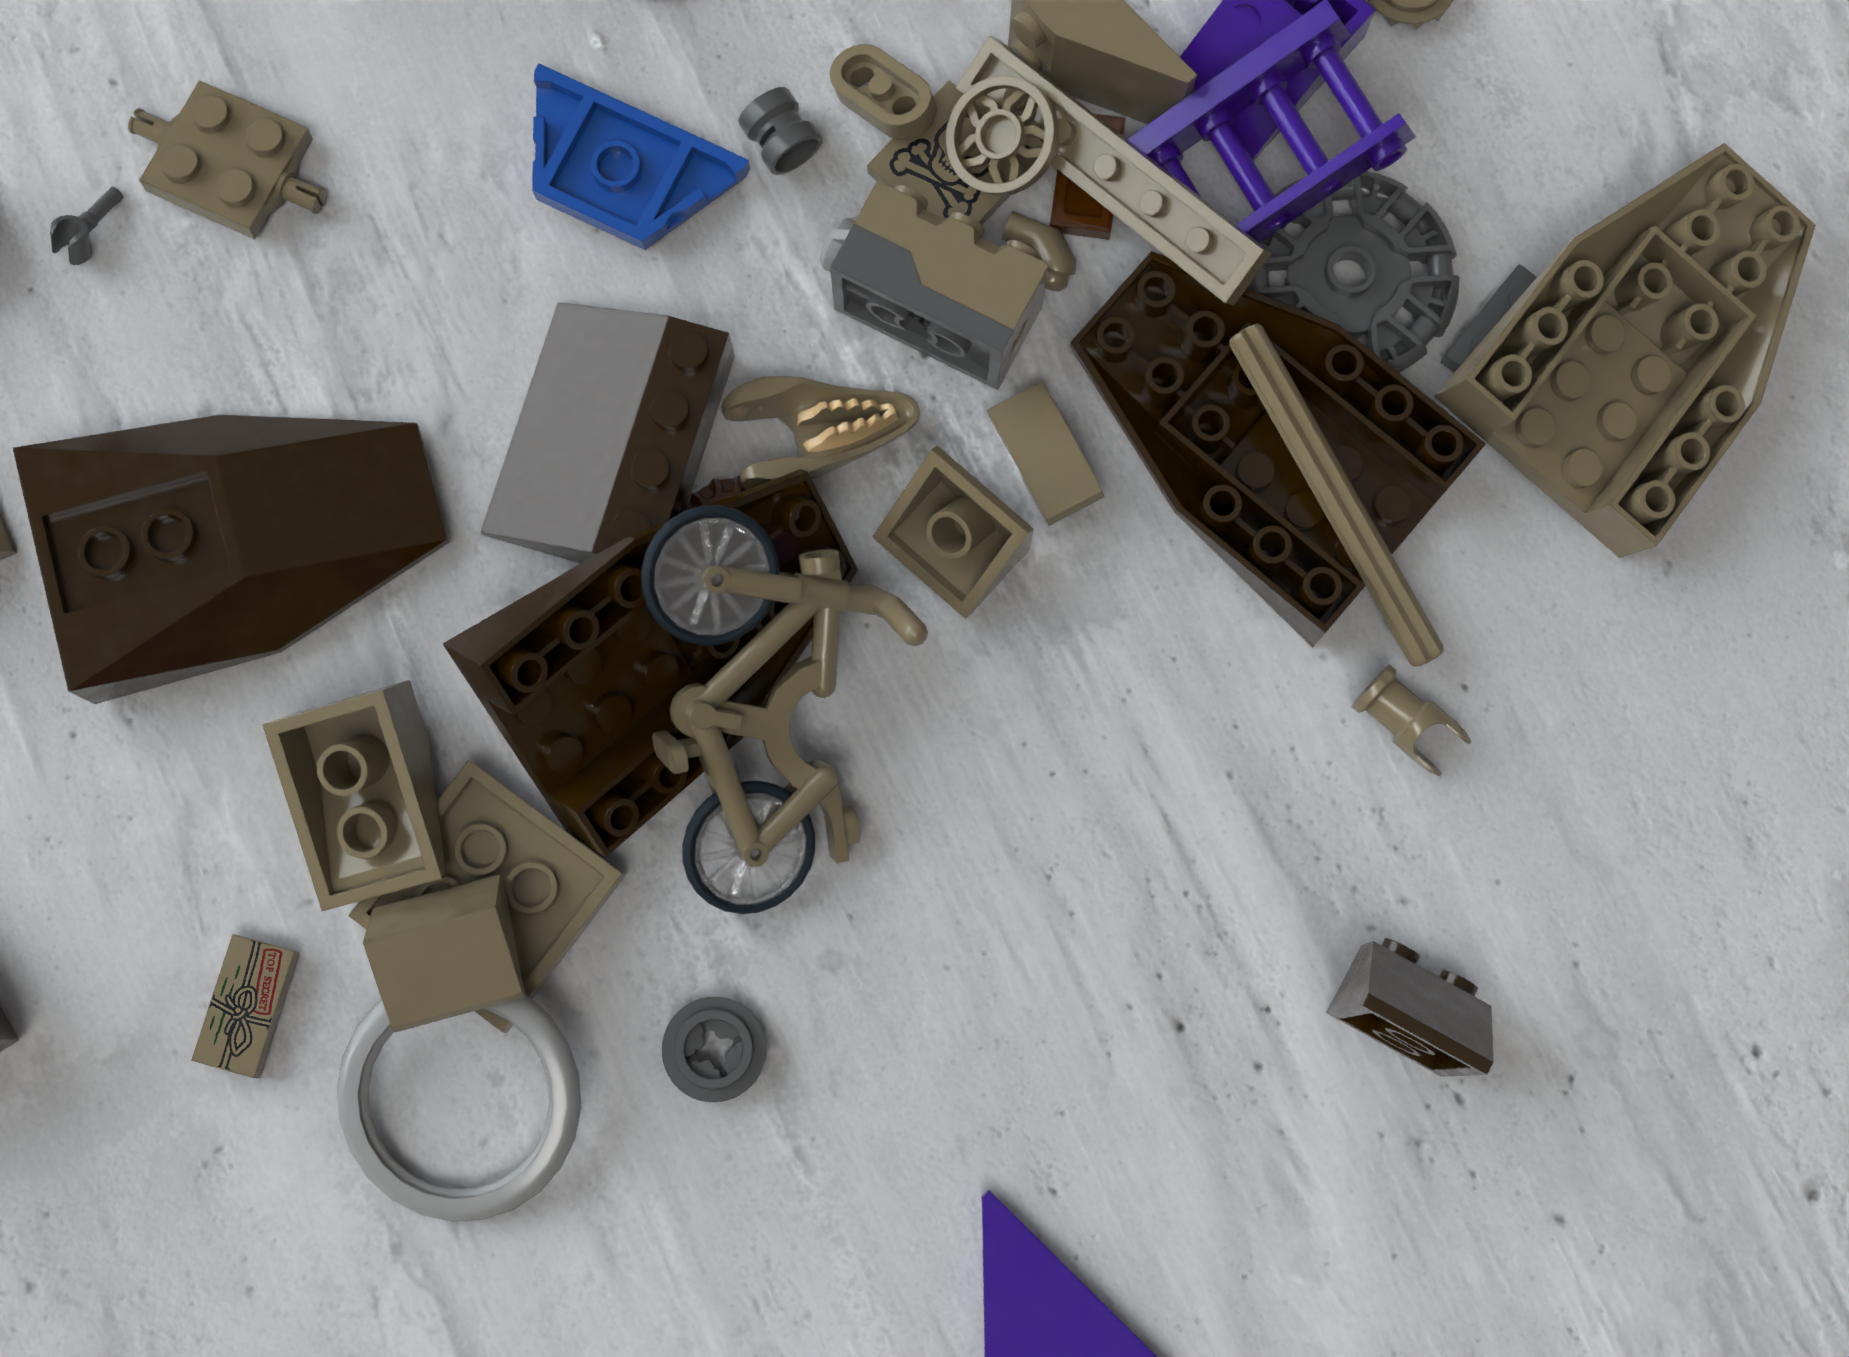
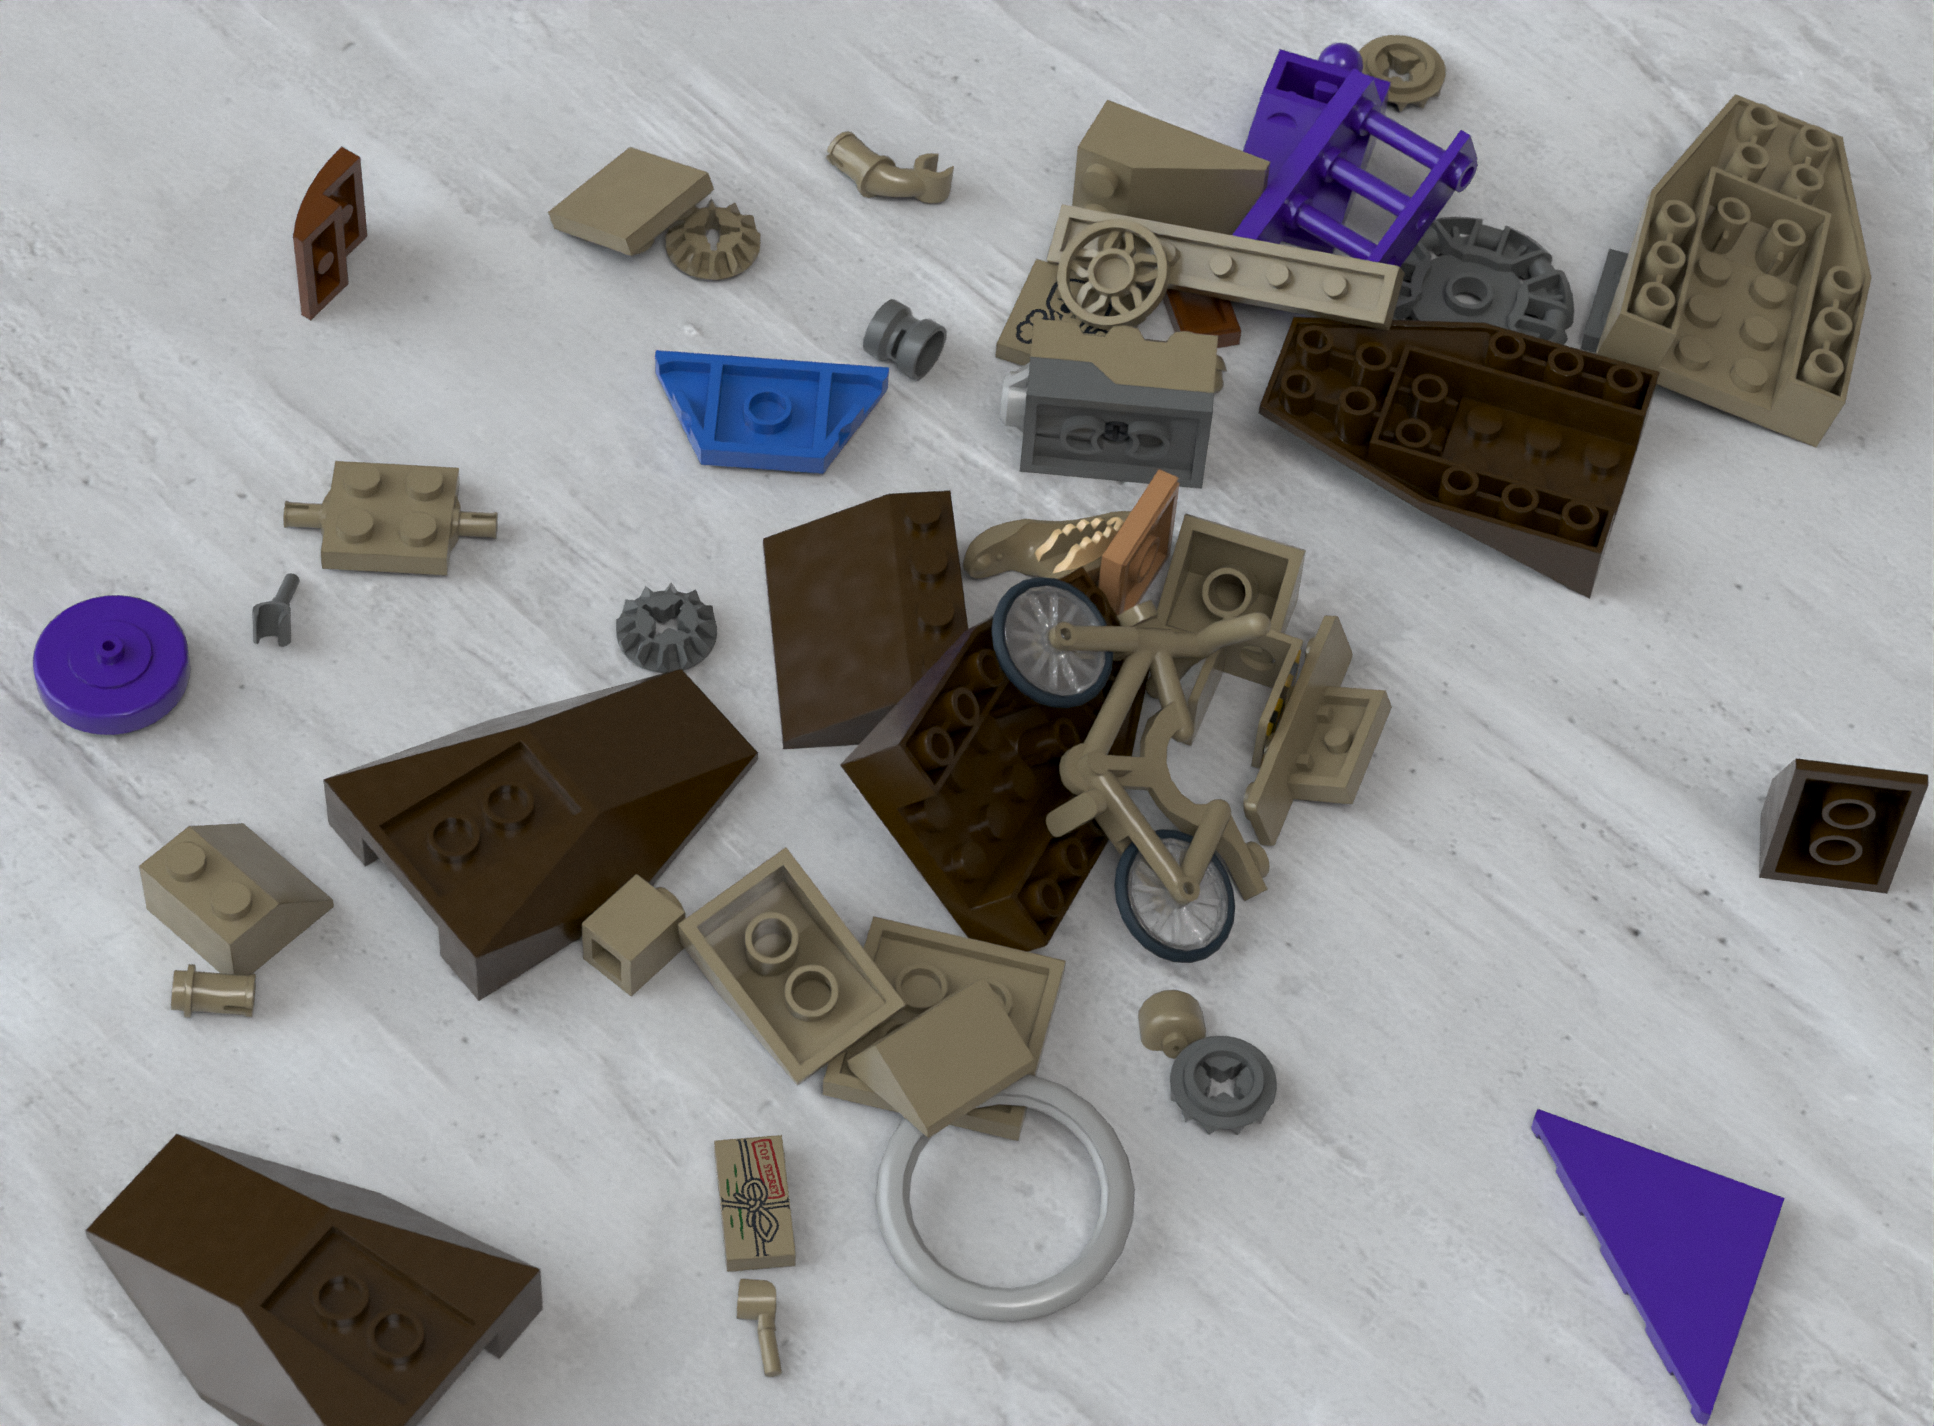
camera: 25 degrees left, 25 degrees down
(206, 1111) = (758, 1302): none -> dark tan hand
(250, 693) = (633, 934): none -> dark tan brick
(416, 397) = (672, 648): none -> dark grey gear
(703, 961) = (1170, 1022): none -> dark tan piece
(878, 463) = (1140, 544): none -> medium nougat plate
(887, 96) = (984, 280): dark tan plate -> none
(929, 590) = (1232, 660): none -> dark tan piece
(971, 720) = (1321, 737): none -> dark tan bracket
(1045, 453) = (1275, 509): dark tan slope -> none
(1336, 495) = (1553, 452): dark tan axle -> none
(1404, 714) = (1702, 614): dark tan piece -> none

